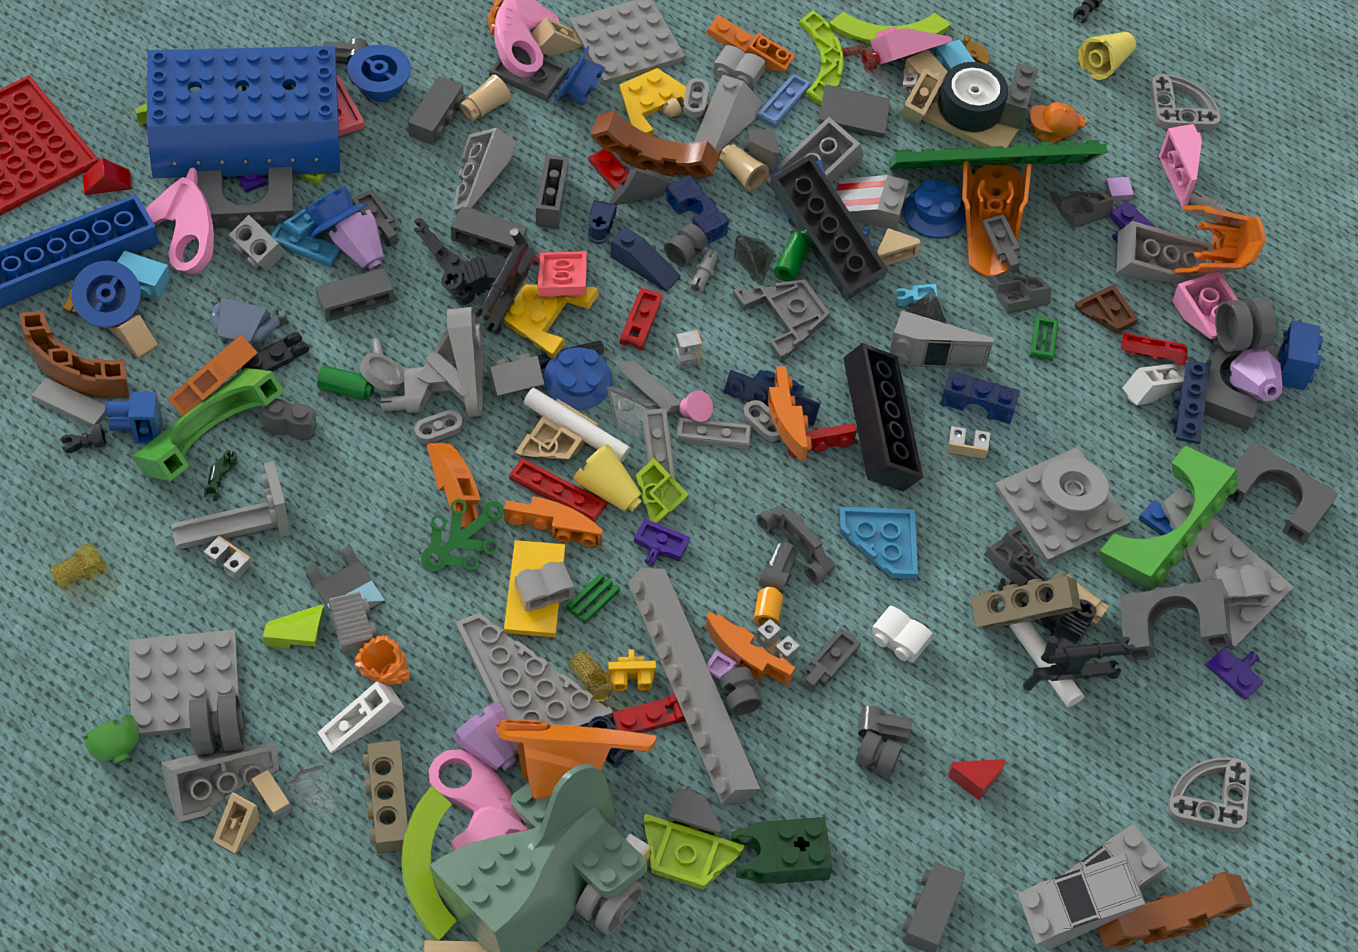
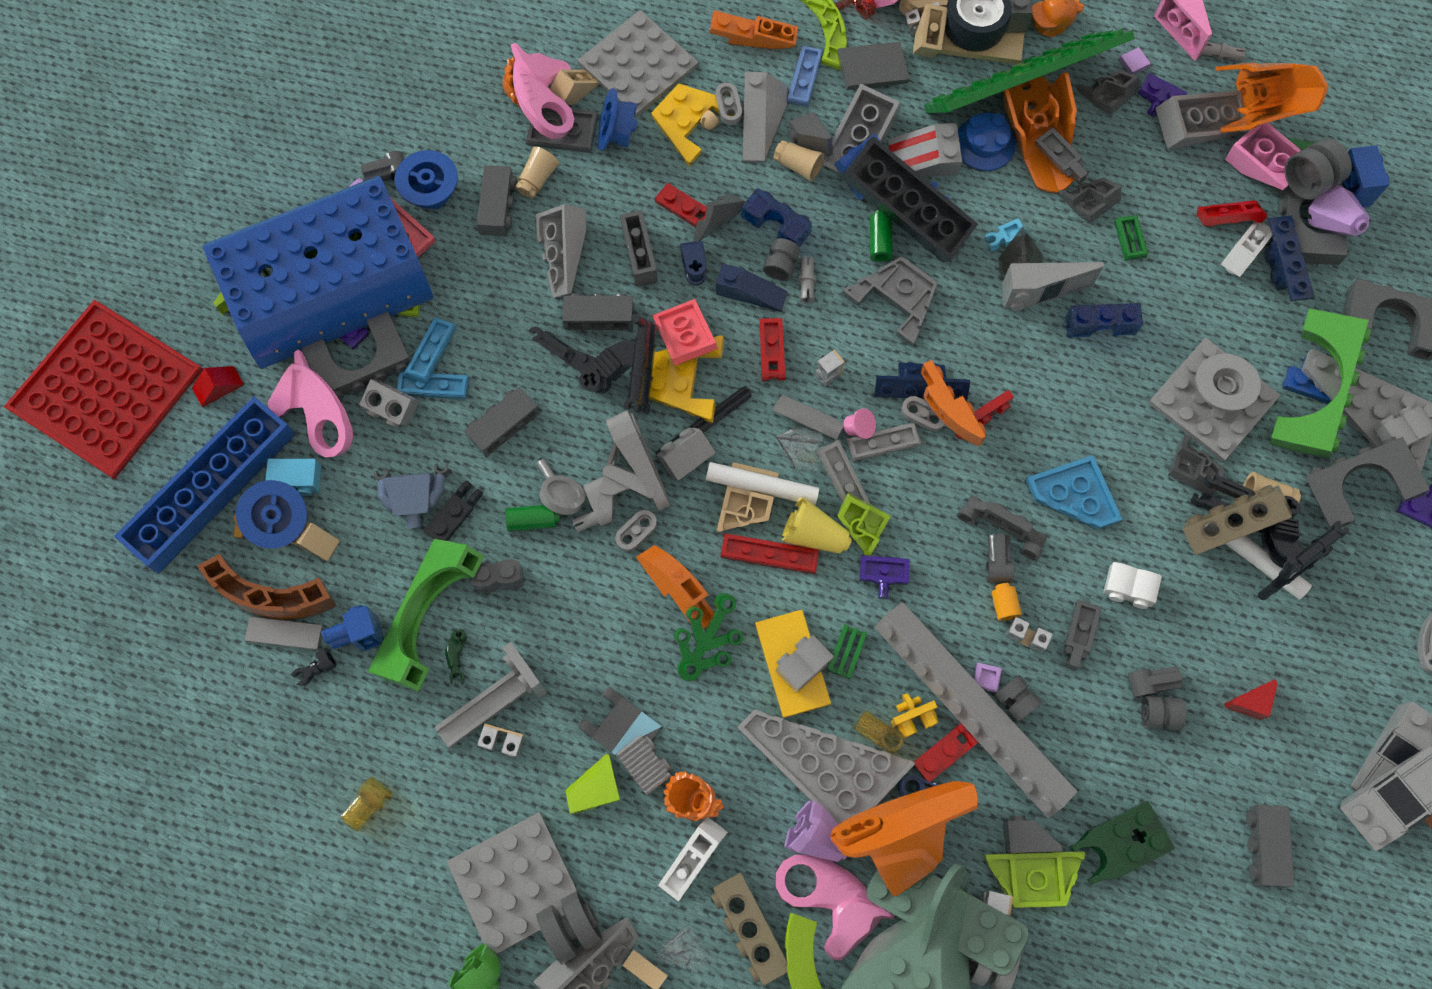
camera: 15 degrees left, 15 degrees up
(212, 375) = (408, 559): orange slope -> none
(332, 210) = (449, 347): blue piece -> none
(360, 240) = (485, 366): lavender cone -> none
(384, 220) = (486, 332): dark grey hinge -> none
(564, 521) = (792, 586): orange slope -> none
(578, 378) = (740, 432): blue piece -> none
(653, 153) = (713, 174): dark orange brick -> none
(738, 645) = (996, 652): orange slope -> none
(739, 65) = (752, 56): light grey brick -> none
(753, 256) = (846, 248): clear smoke slope -> none
(882, 417) = (1031, 375): black brick -> none
(897, 247) = (969, 191): tan slope -> none
(957, 446) = (1120, 365): piece -> none
(1108, 309) = (1176, 188): reddish brown wing -> none

